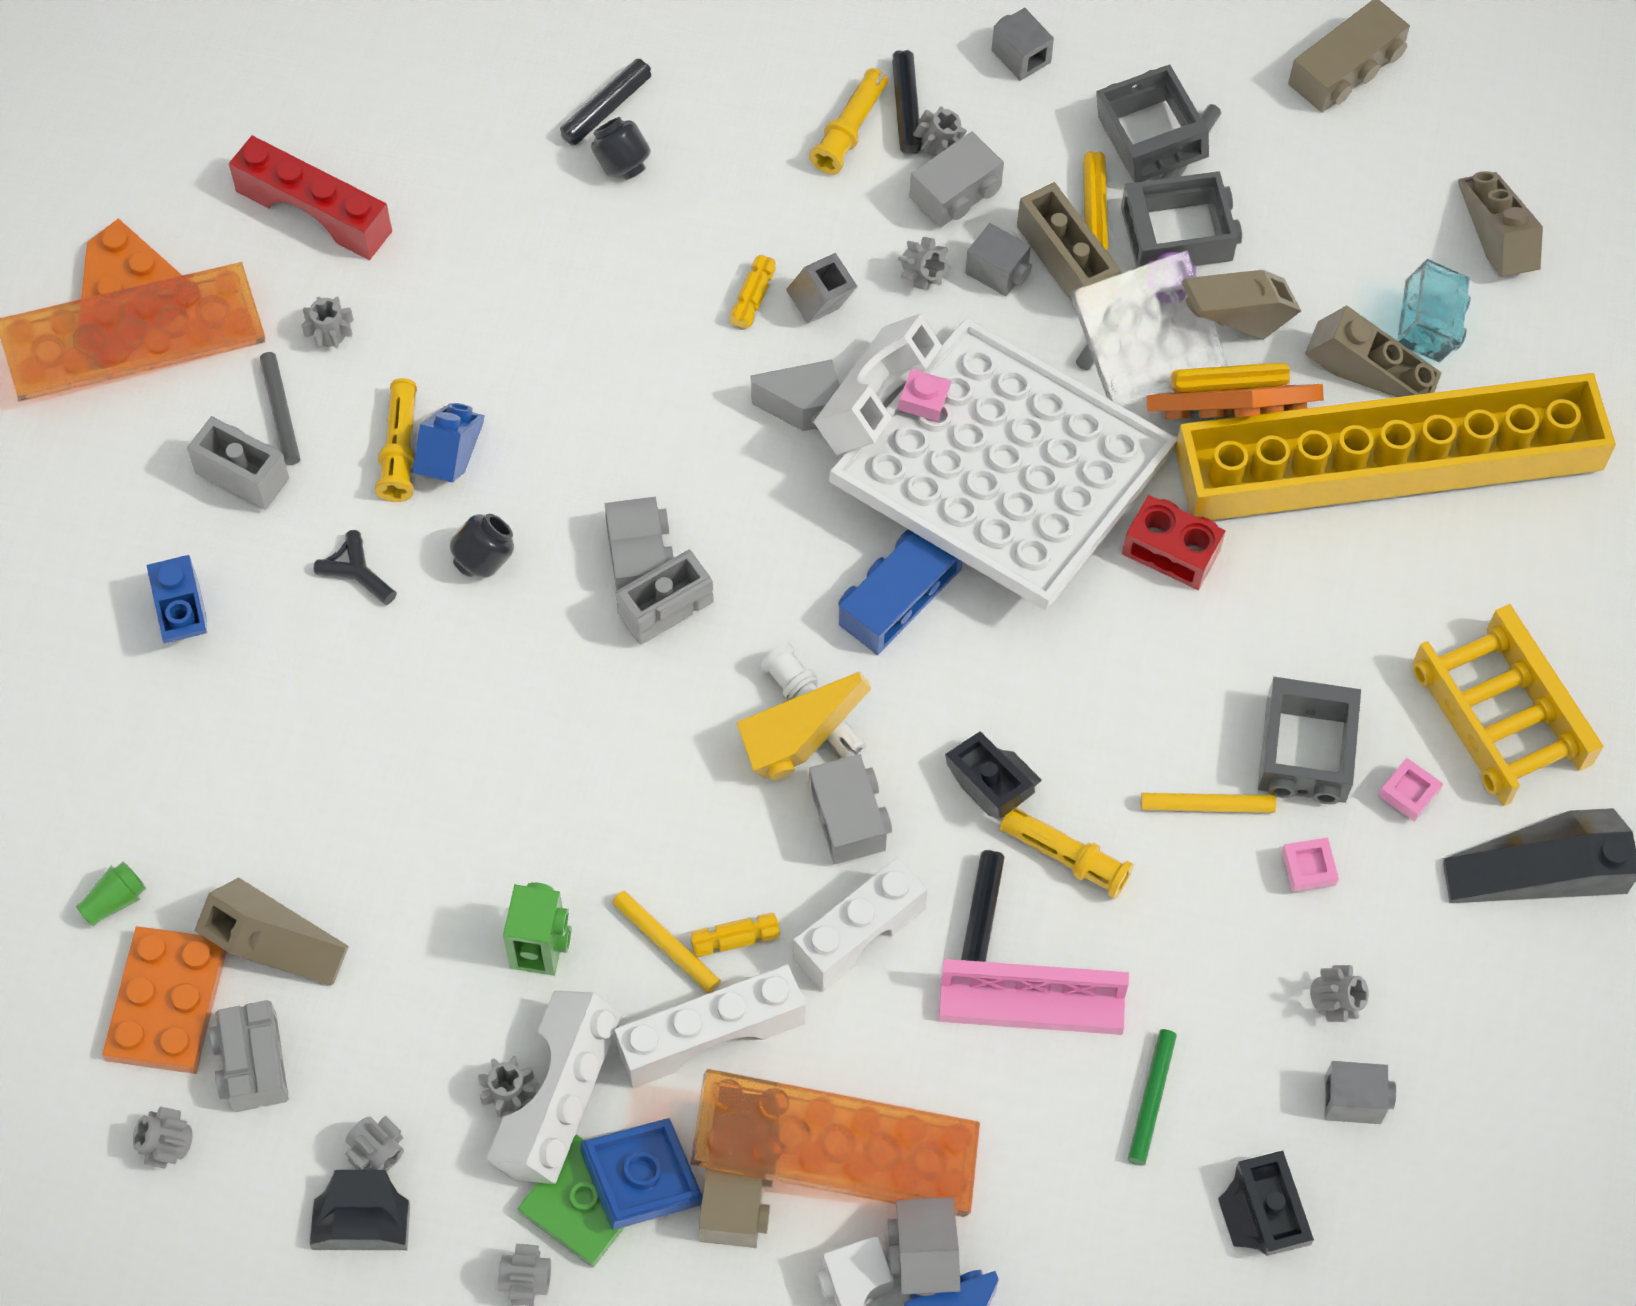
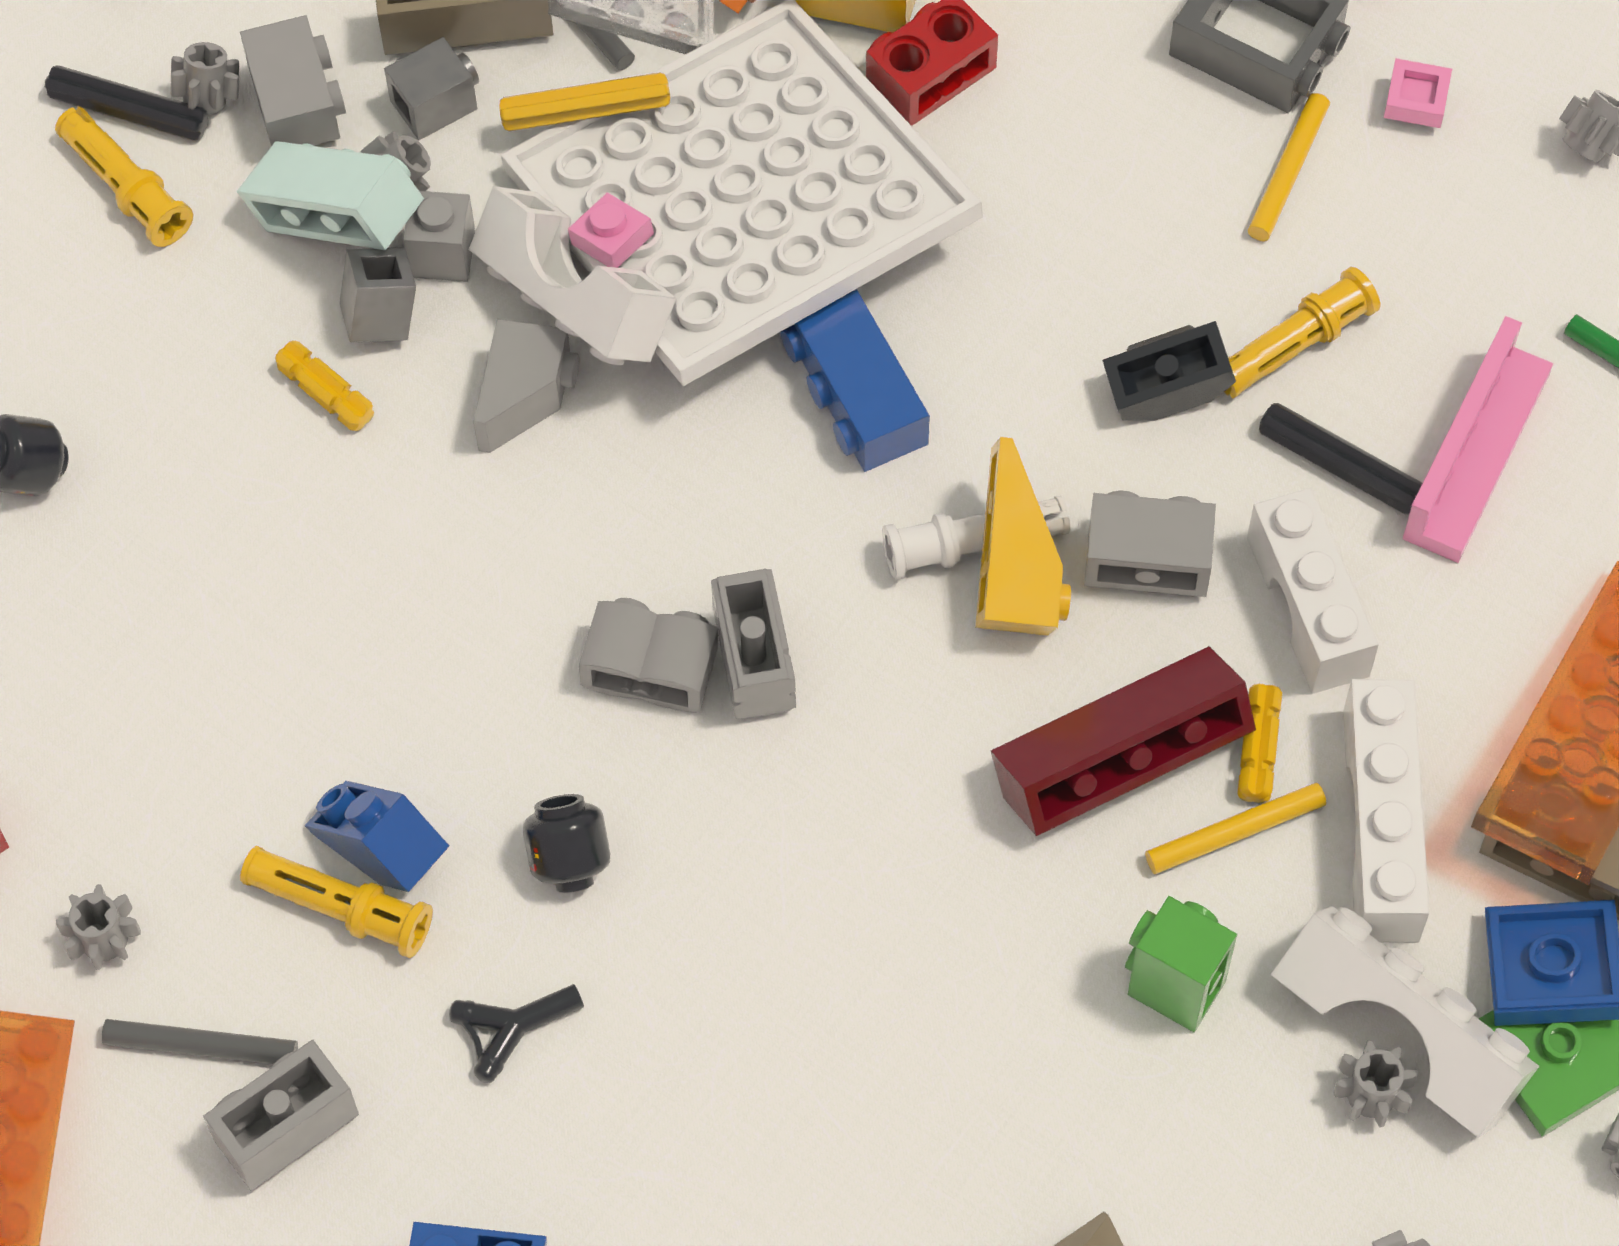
camera: 65 degrees left, 0 degrees up
(691, 843) = (1123, 740): none -> dark red brick
(877, 230) = (331, 194): none -> light aqua brick
(884, 302) = (440, 237): none -> light grey brick
(1025, 347) = (584, 101): none -> yellow axle

